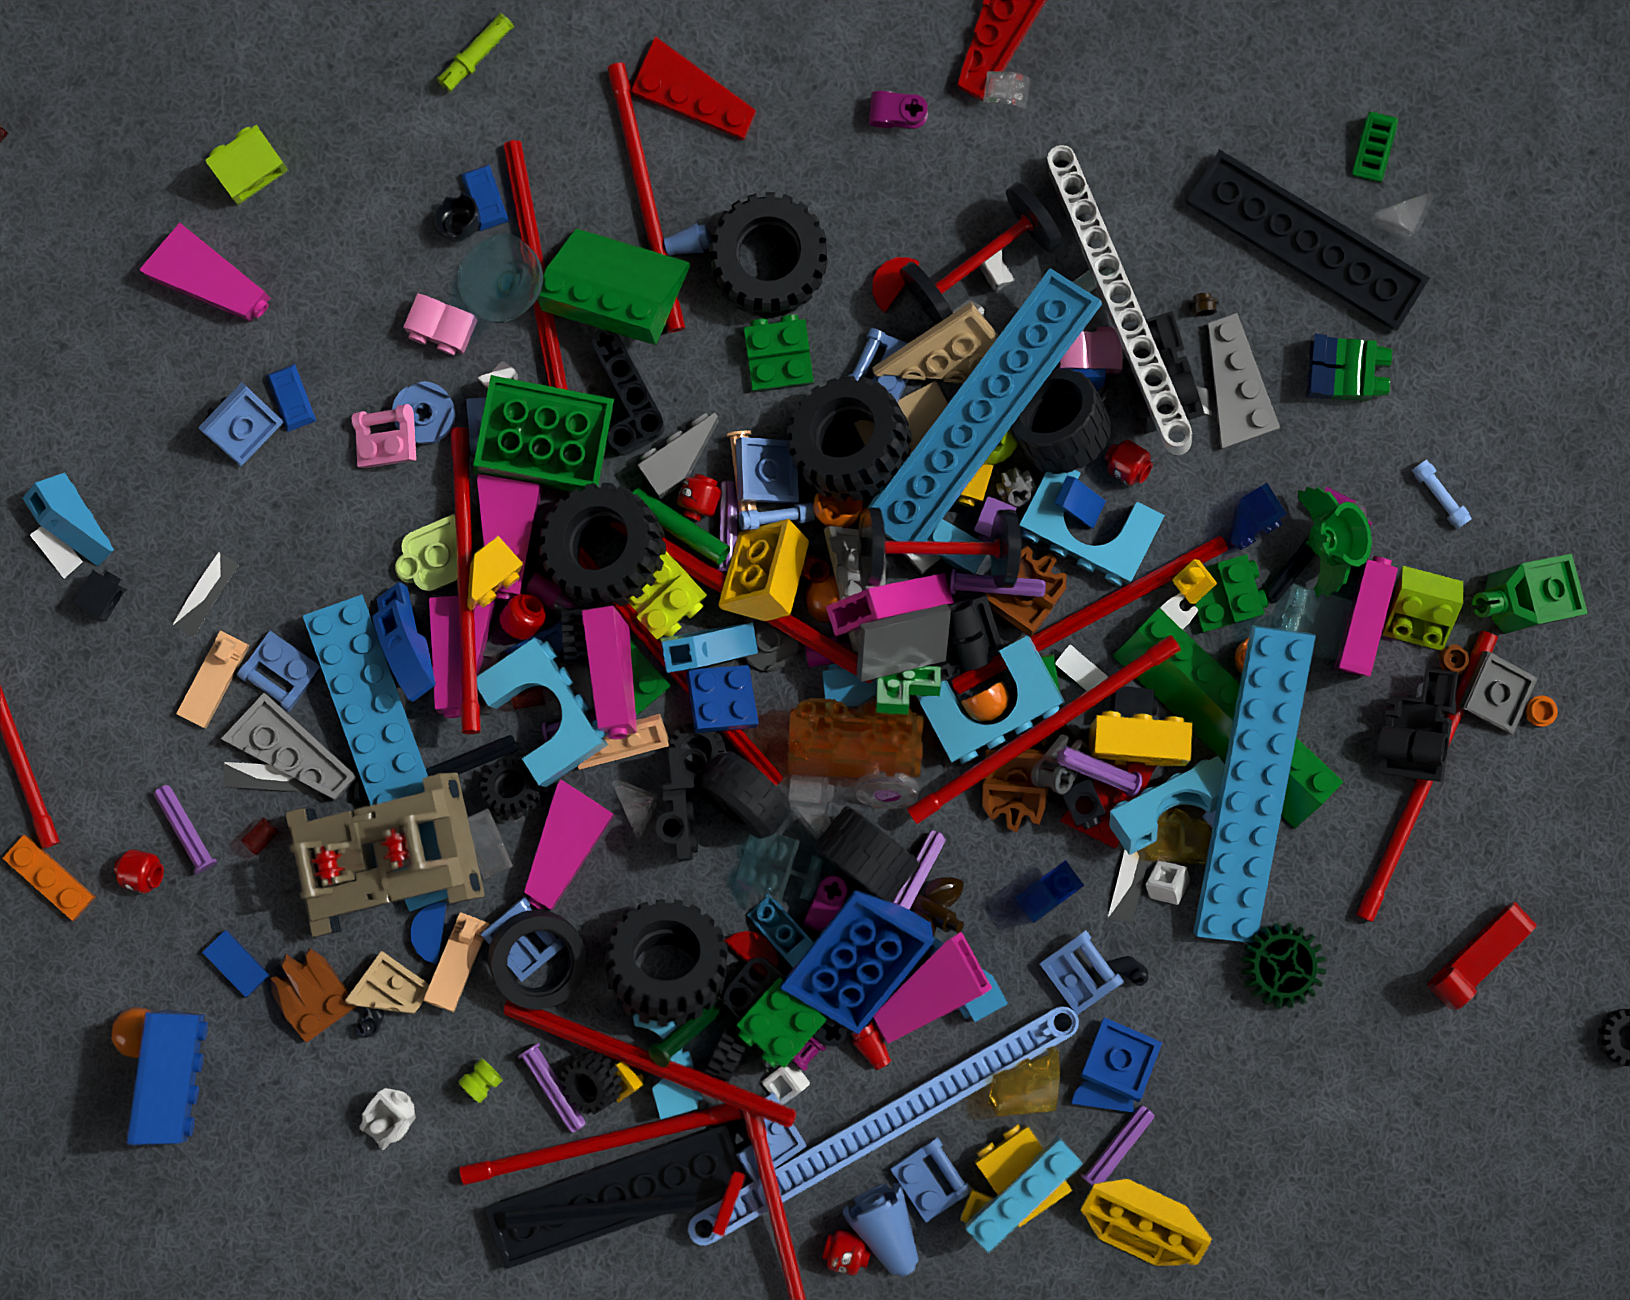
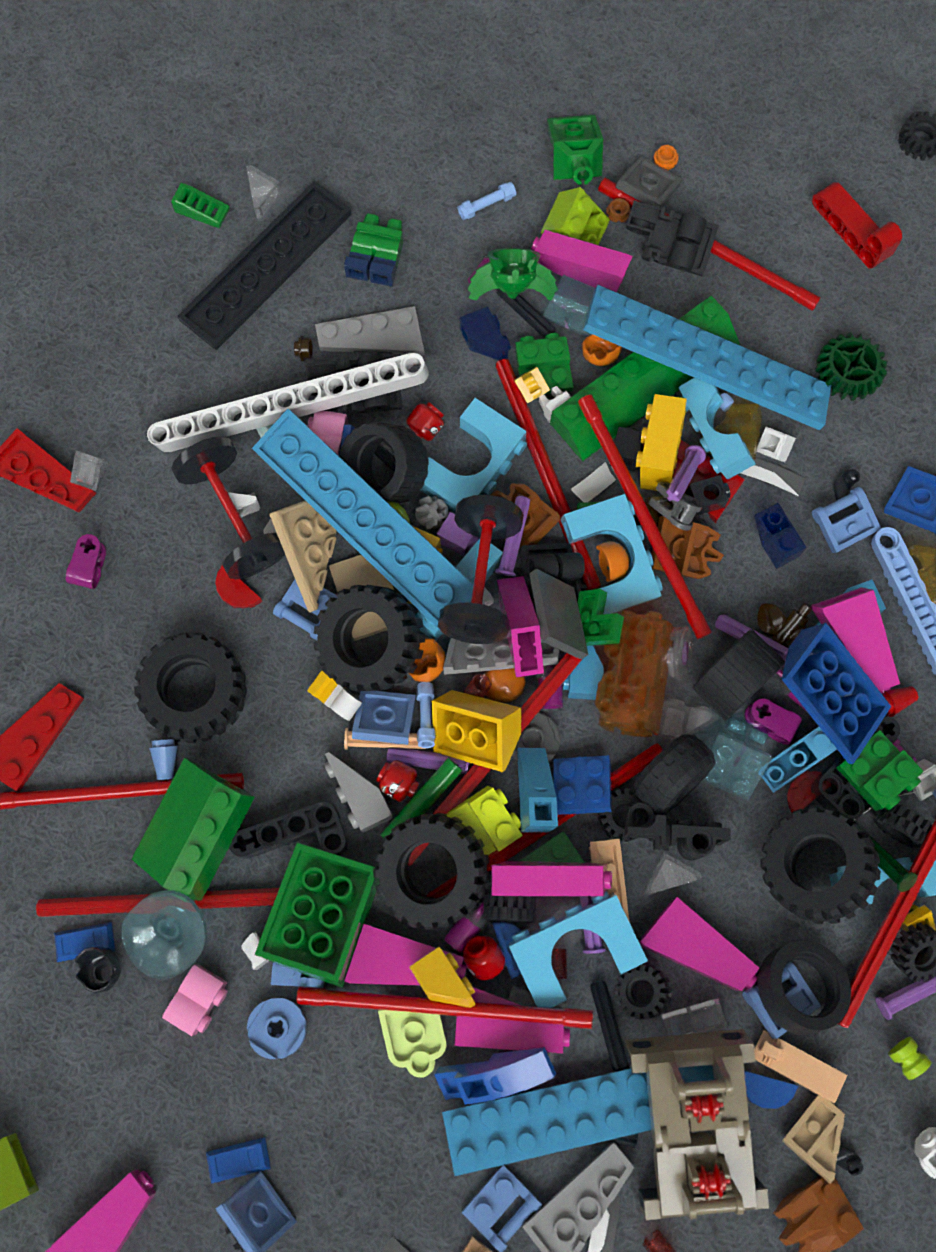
camera: 80 degrees left, 10 degrees down
(388, 446) = (303, 1069): bright pink plate -> none
(775, 419) = (334, 696): none -> leg
(778, 353) = (280, 694): green plate -> none
(1080, 502) = (452, 462): blue tile -> none

